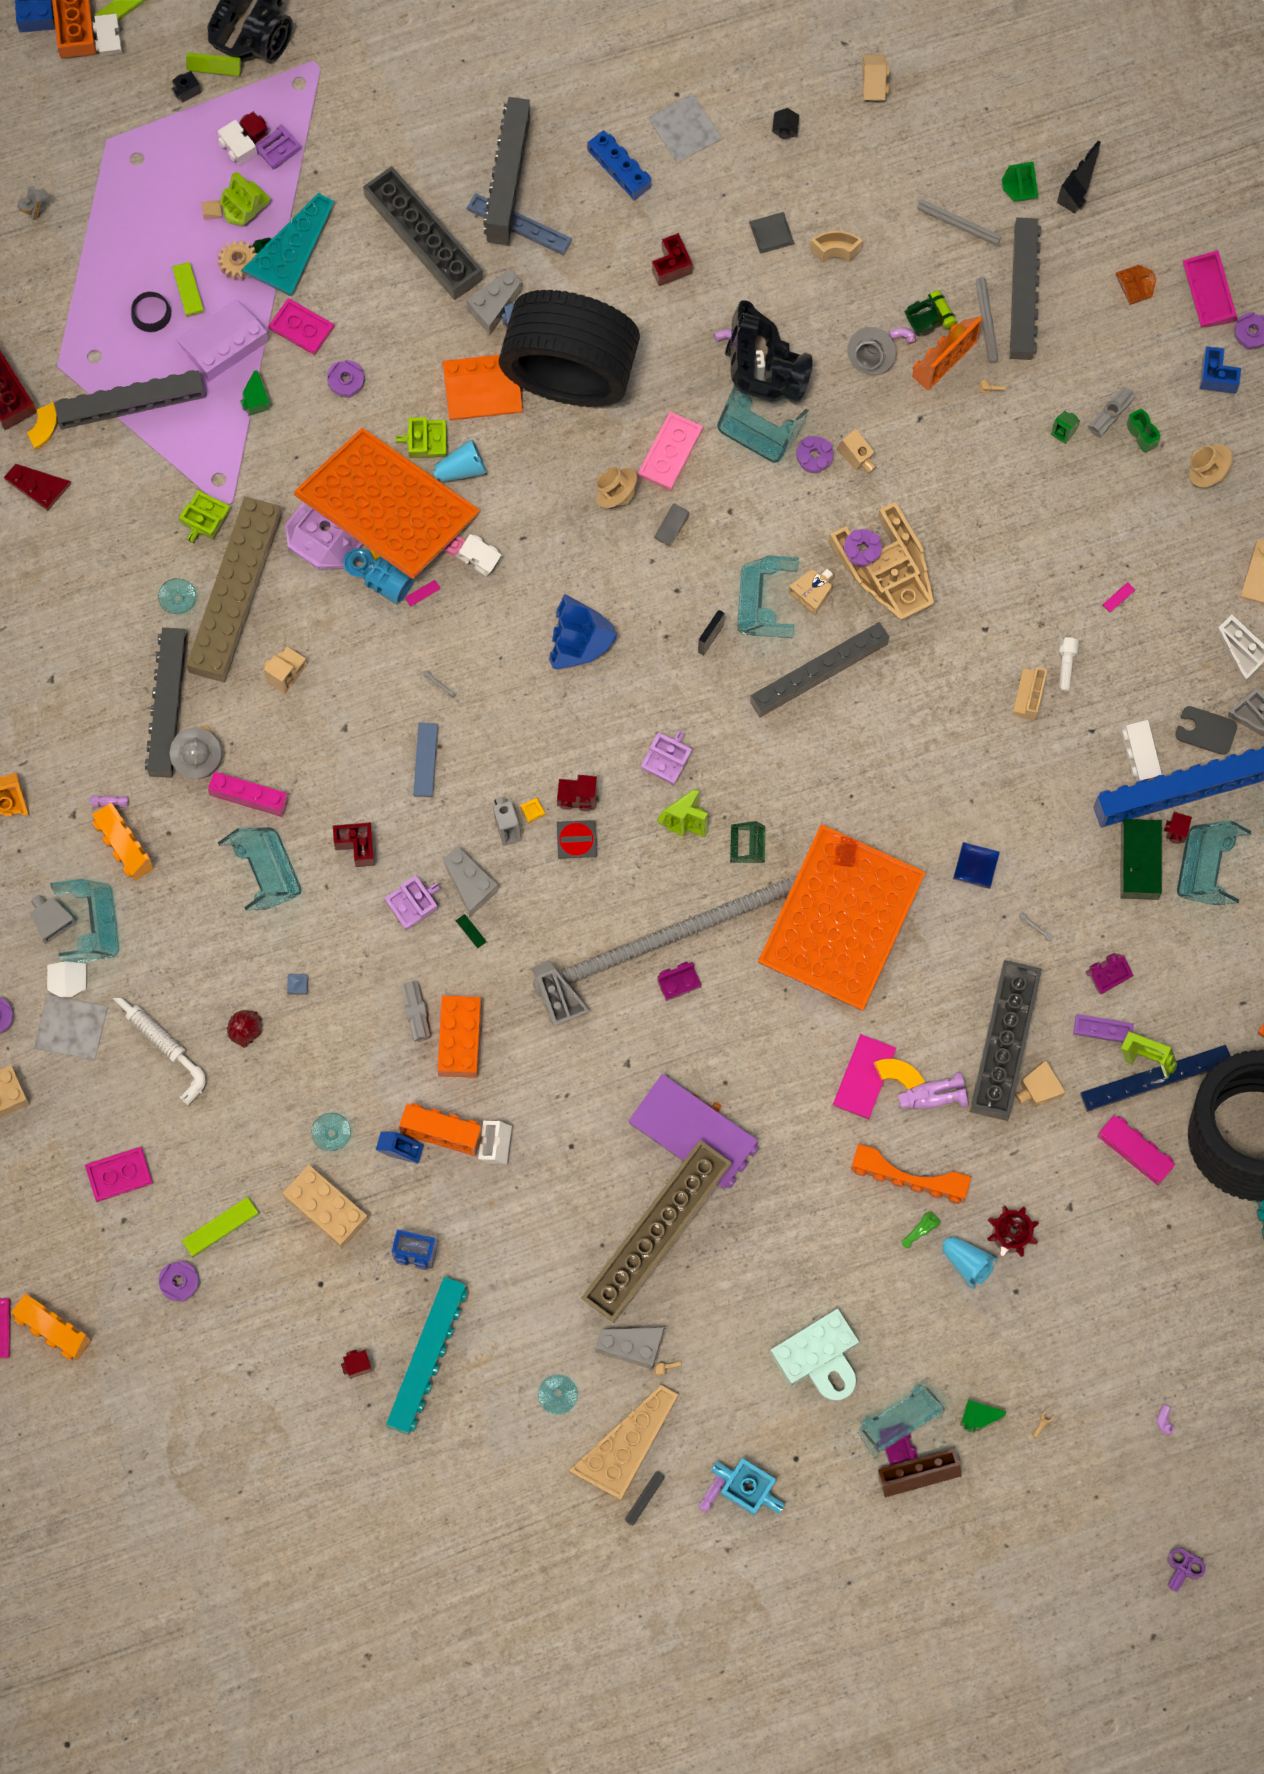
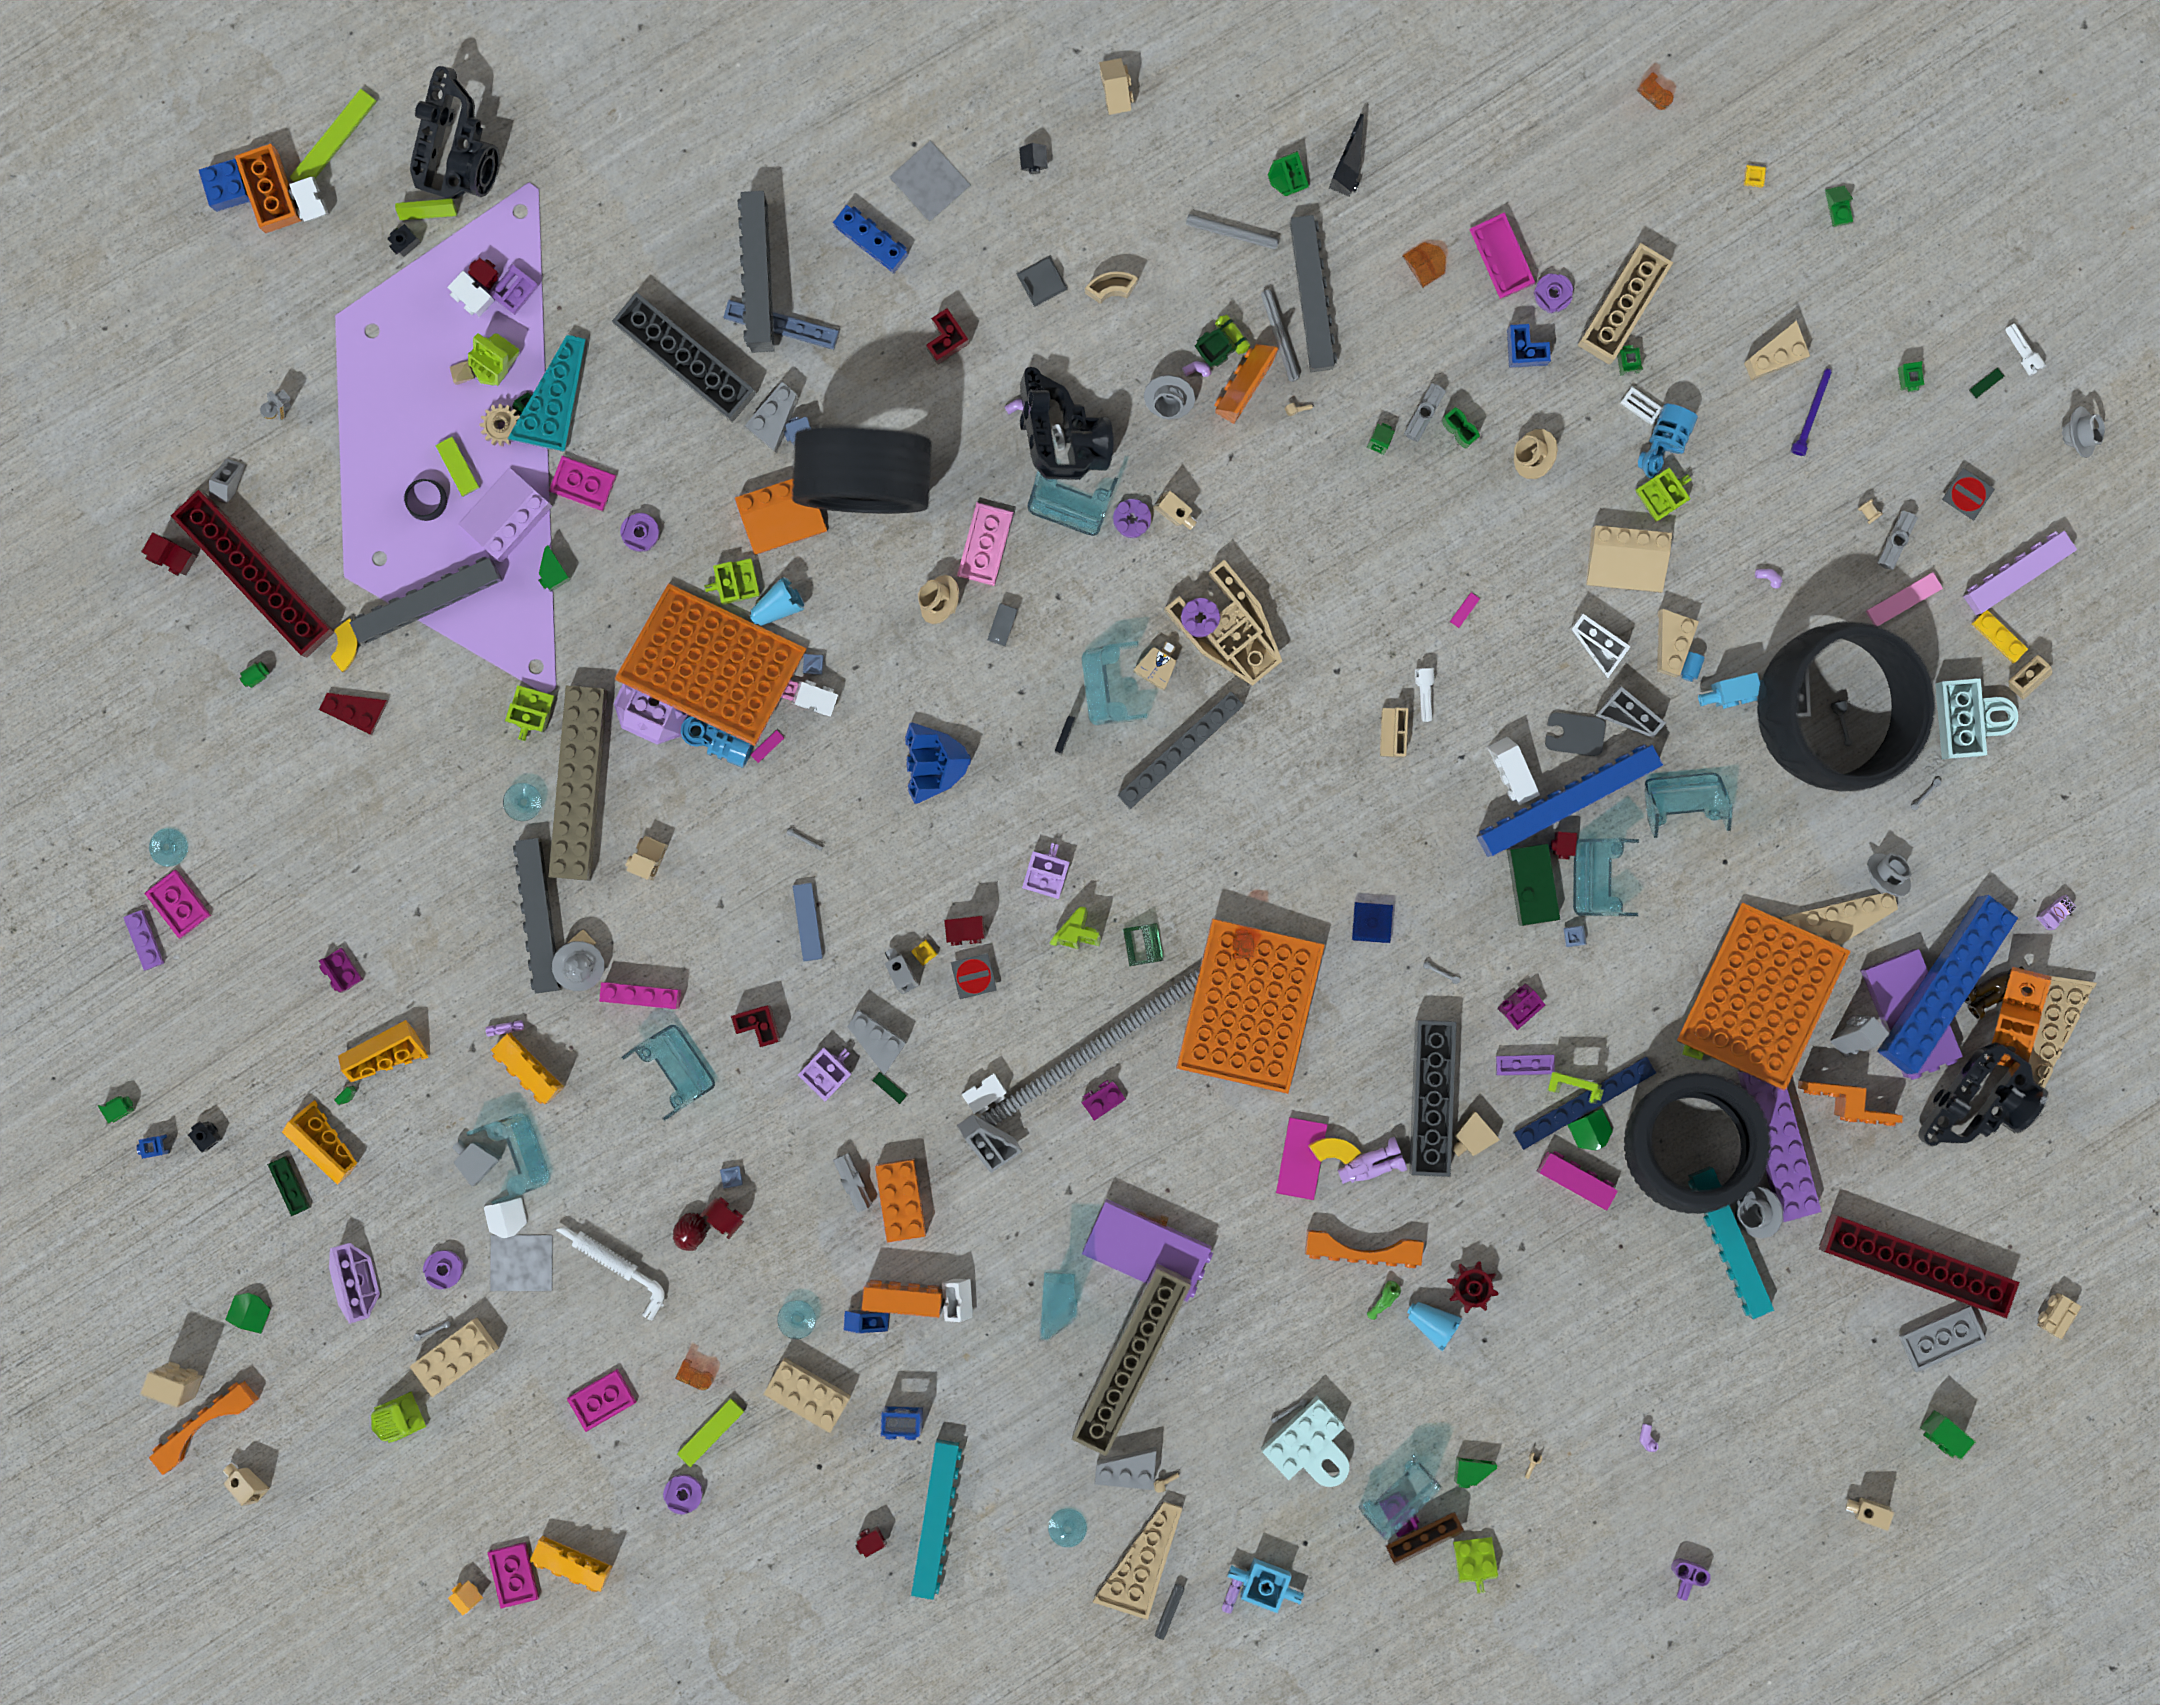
camera: 10 degrees left, 15 degrees up
(214, 1167) = (694, 1377): none -> clear orange leg
(280, 1016) = (722, 1217): none -> dark red brick
(483, 526) = (813, 664): none -> sand blue tile
(564, 952) = (981, 1097): none -> white brick
(594, 1157) = (1057, 1304): none -> clear light blue windscreen
(820, 1315) = (1303, 1402): none -> light grey hinge
(967, 1509) = (1475, 1561): none -> lime plate
(1158, 1105) = (1591, 1130): none -> green slope
(1174, 916) = (1575, 936): none -> sand blue tile

